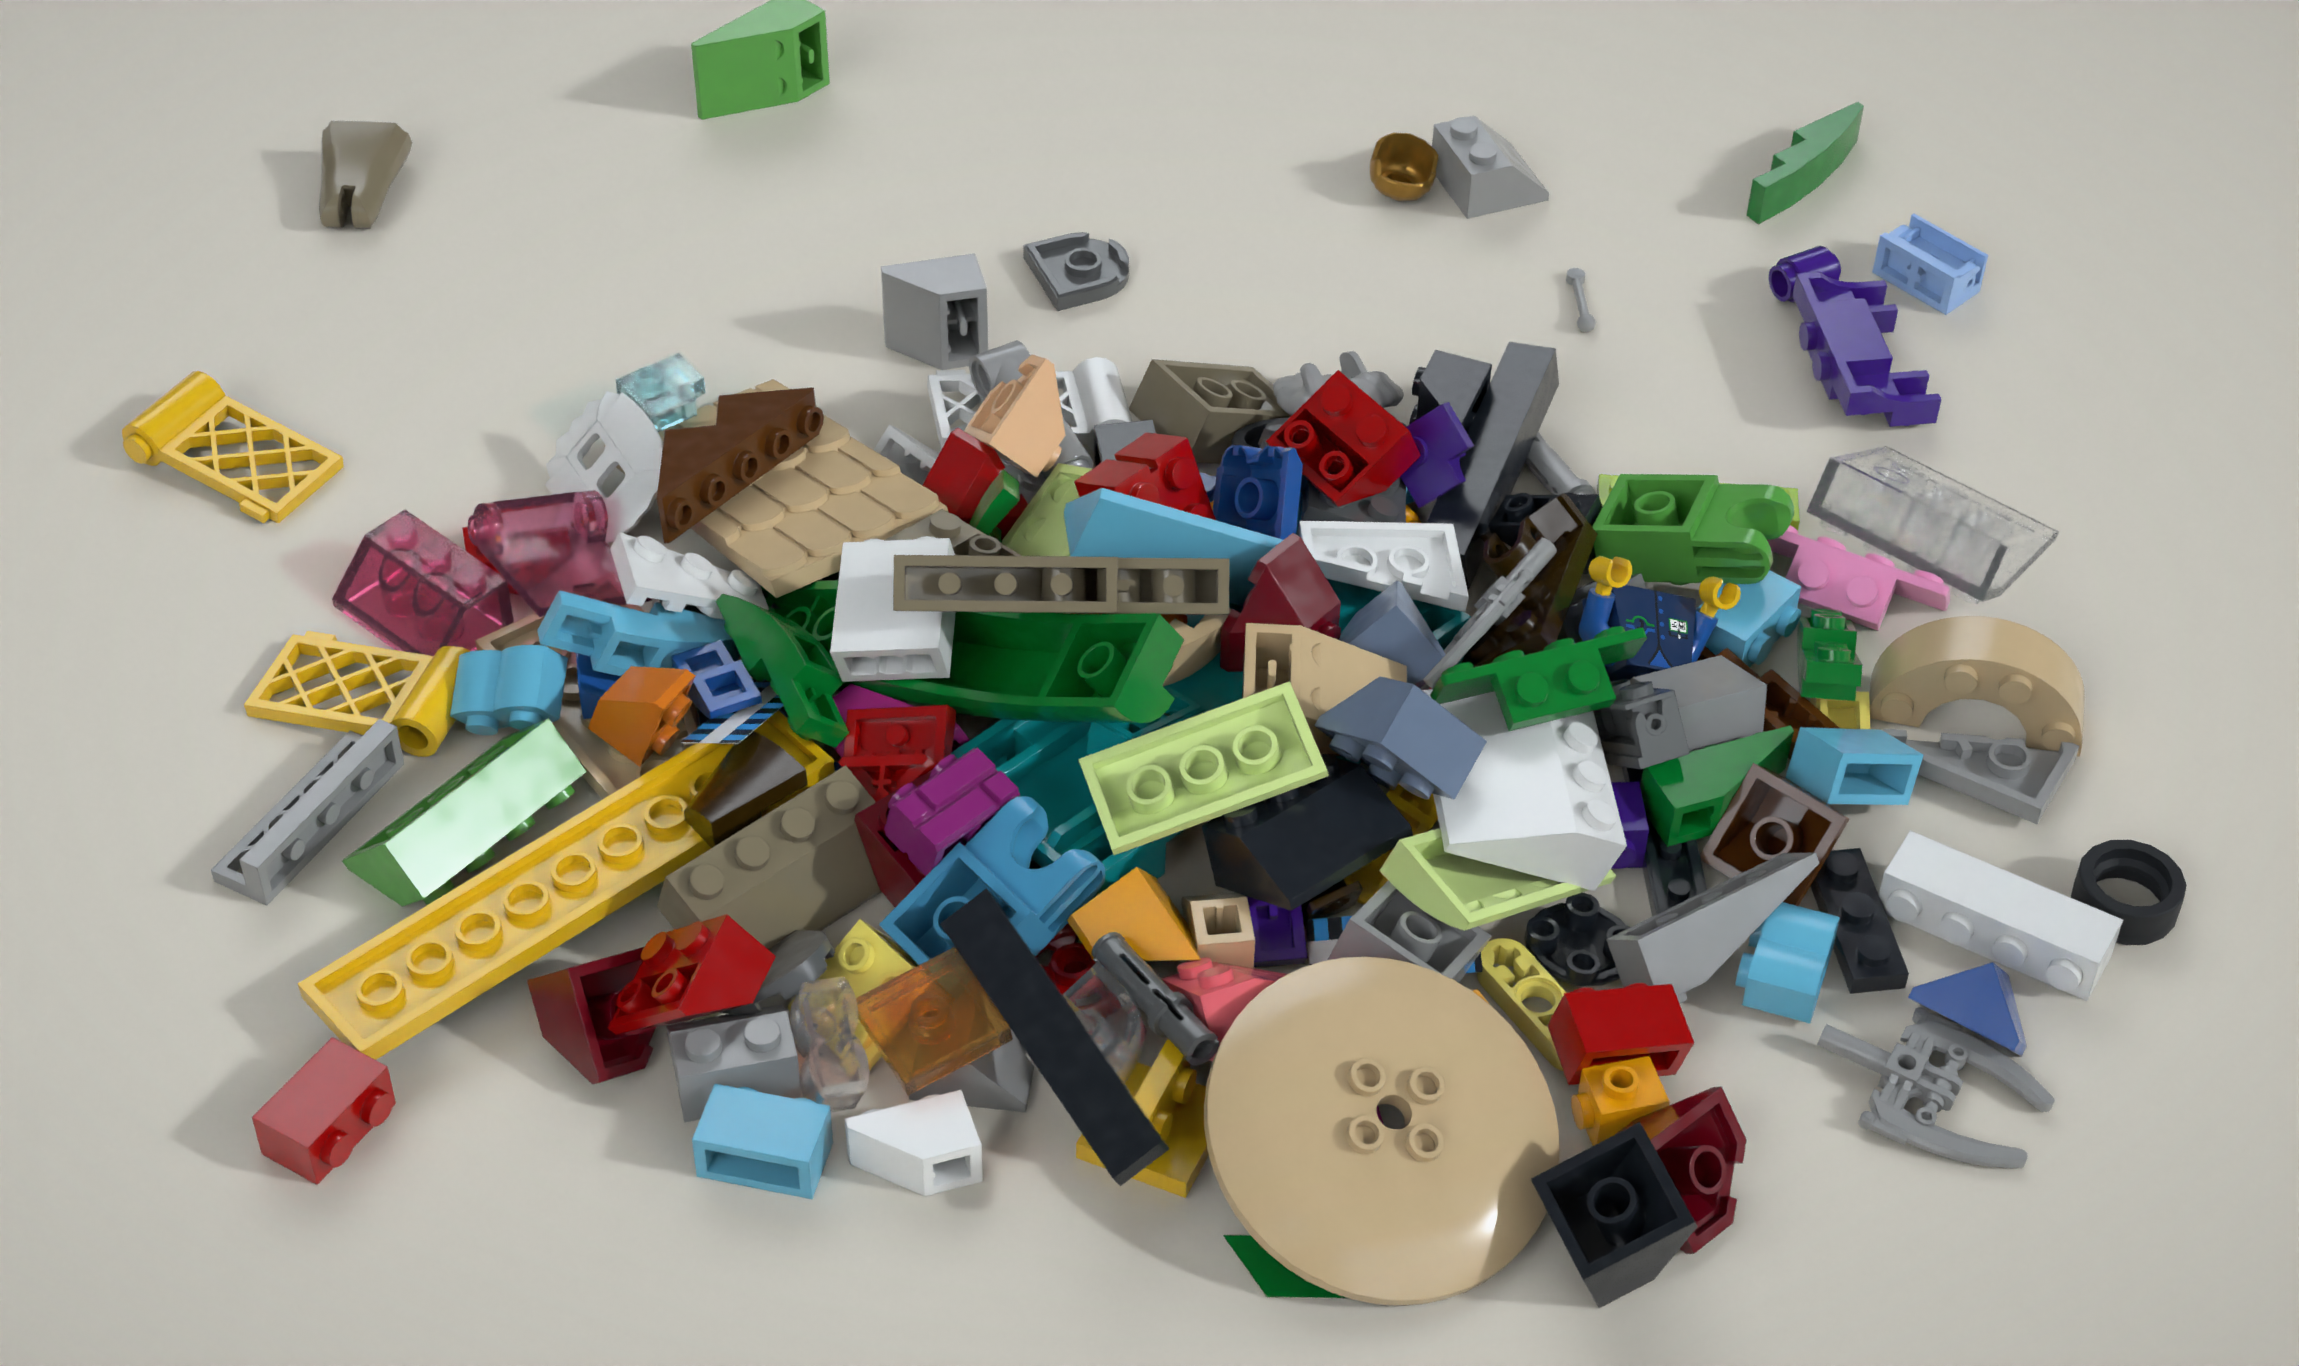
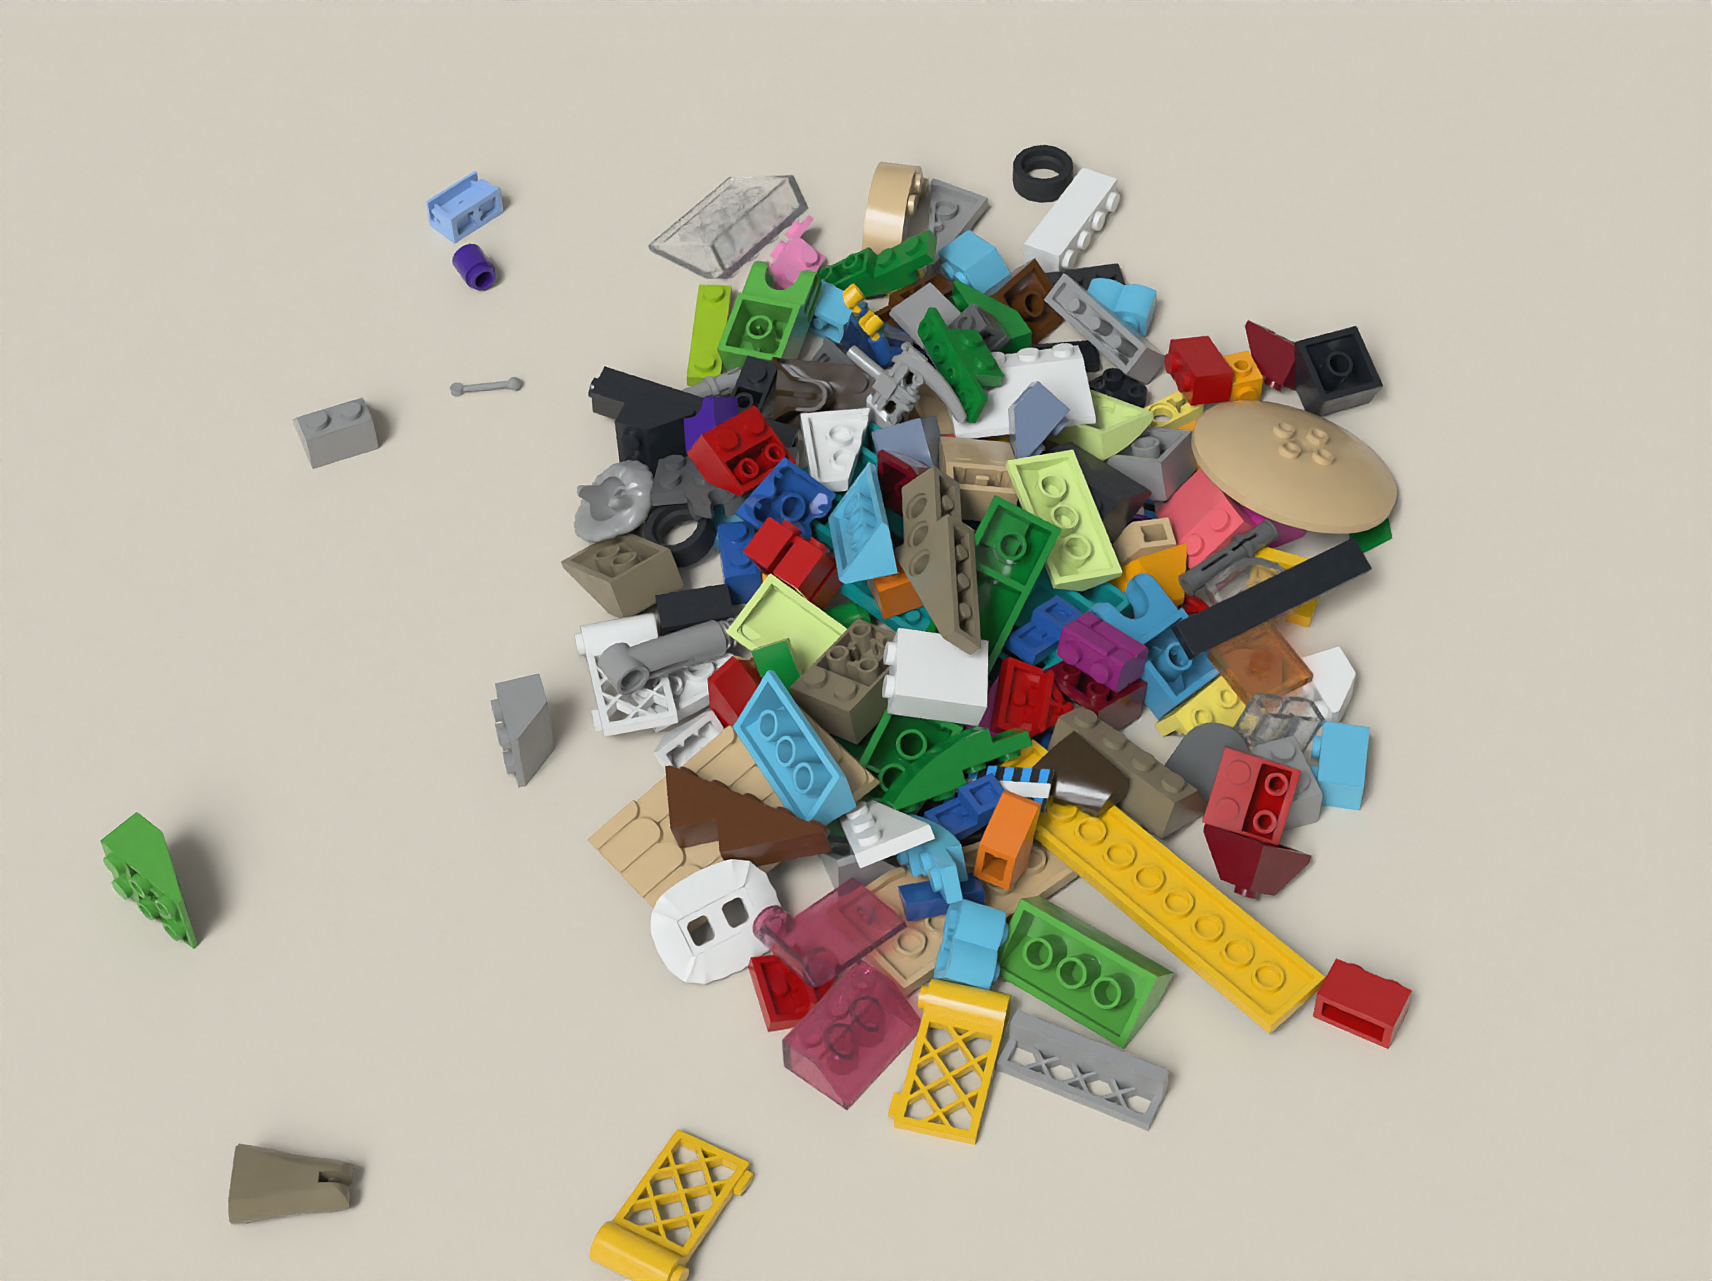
camera: 90 degrees left, 5 degrees up
(665, 390) = (624, 902): clear light blue brick -> none
(811, 498) = (792, 754): none -> medium azure slope
(1023, 418) = (699, 639): light nougat slope -> none
(1025, 763) = (1043, 632): none -> blue slope
(1077, 268) = (436, 668): dark grey tile -> none
(1403, 166) = (336, 472): pearl gold hair -> none
(1806, 164) = (338, 255): green slope -> none
(1850, 354) = (563, 246): dark purple bracket -> none
(1909, 1074) = (1191, 267): light grey bar -> none
(1978, 1001) = (1139, 234): blue slope -> none

